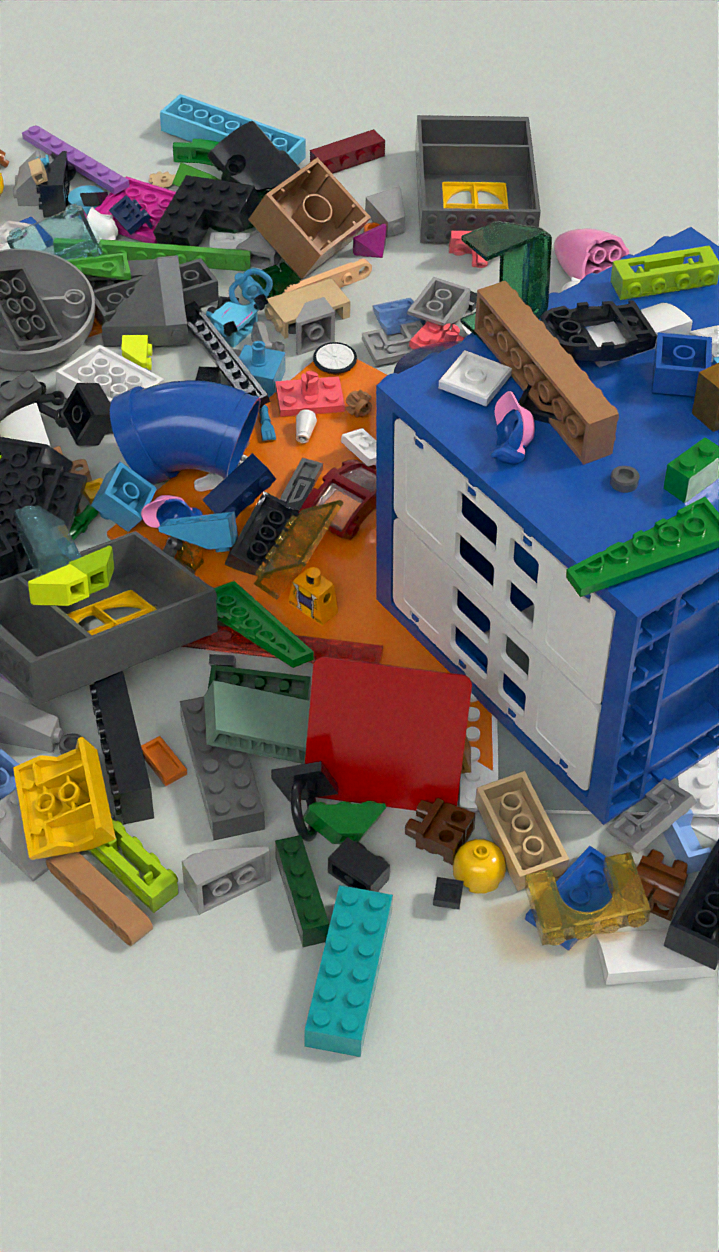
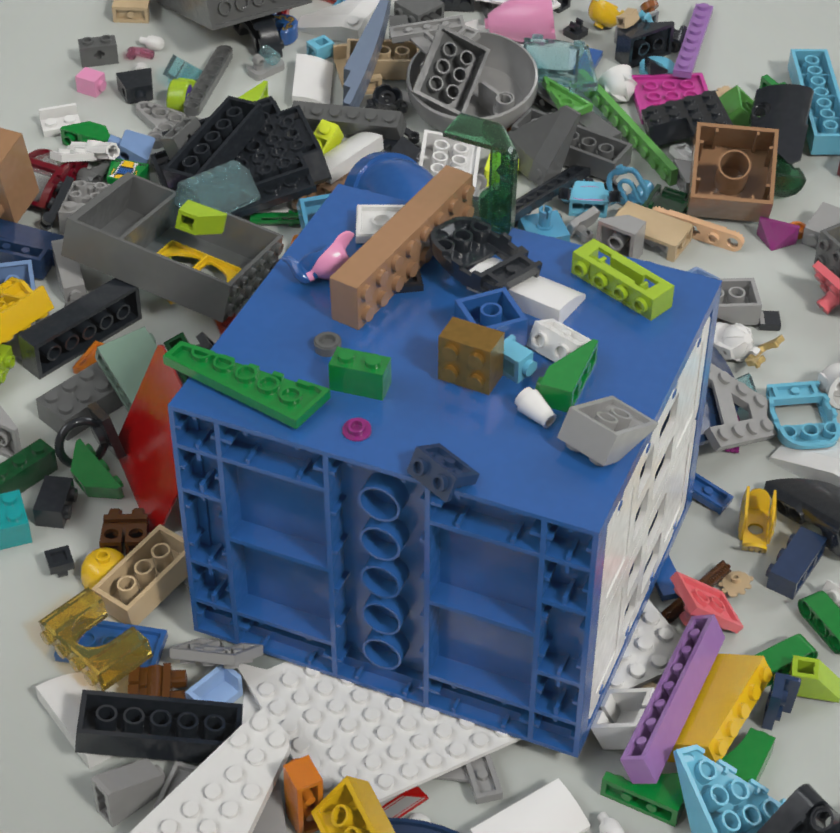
camera: 60 degrees right, 5 degrees down
(59, 587) = (162, 206): neon yellow slope -> none
(130, 215) = (650, 90): dark blue bracket -> none

